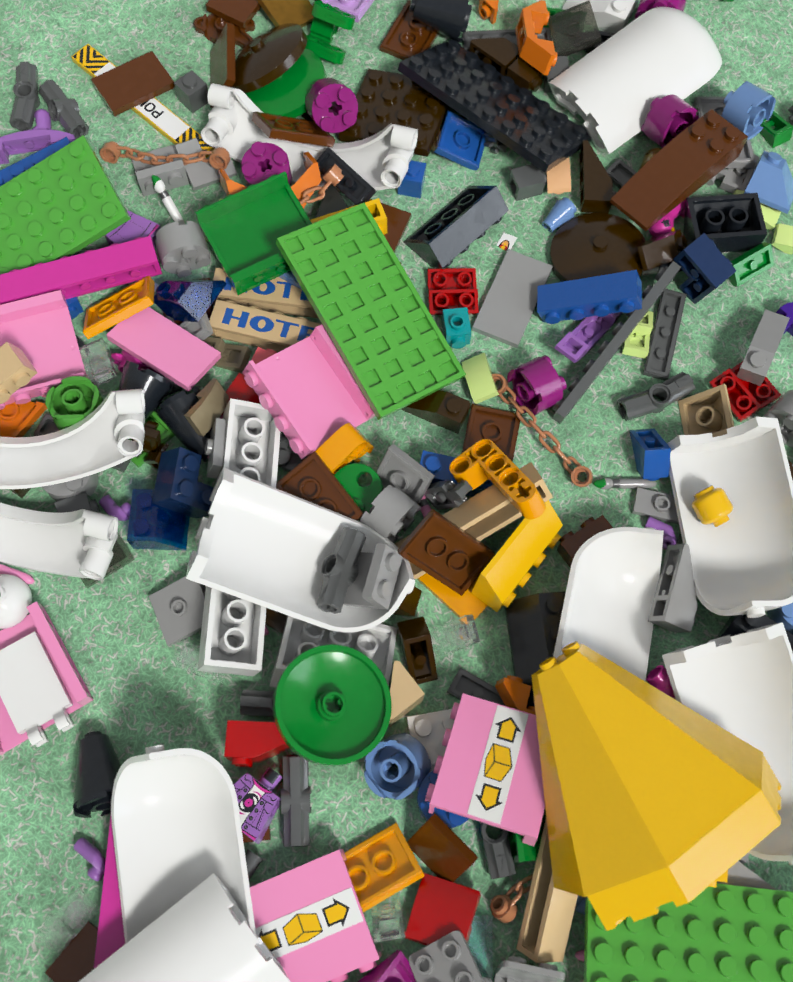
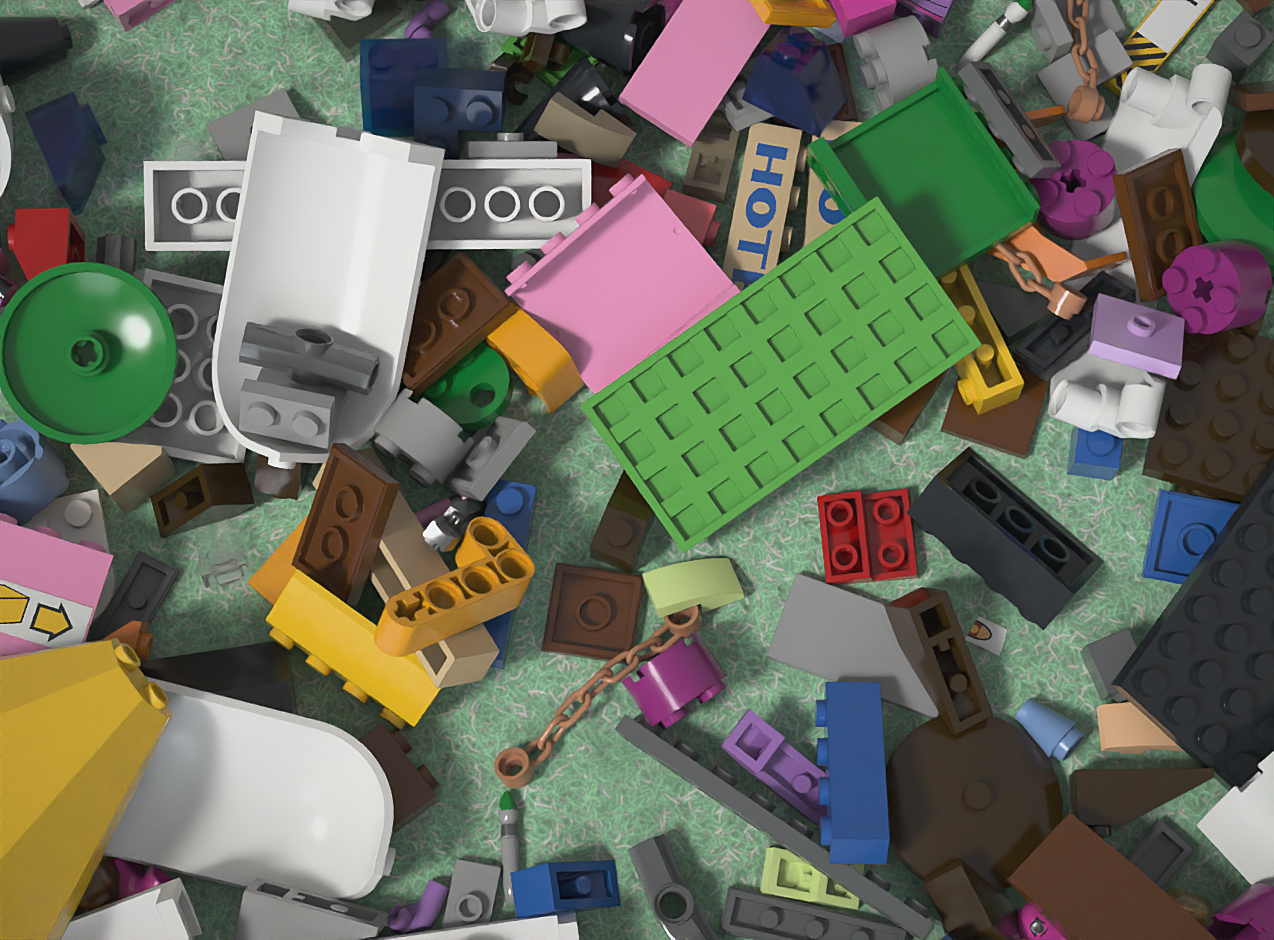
camera: 90 degrees right, 5 degrees up
(177, 728) = (71, 146): none -> clear blue slope
(232, 183) = (1008, 120): none -> dark grey plate
(359, 138) = (1137, 336): none -> lavender plate
(456, 327) = (788, 542): teal brick -> none
(519, 256) = (939, 656): none -> dark brown slope

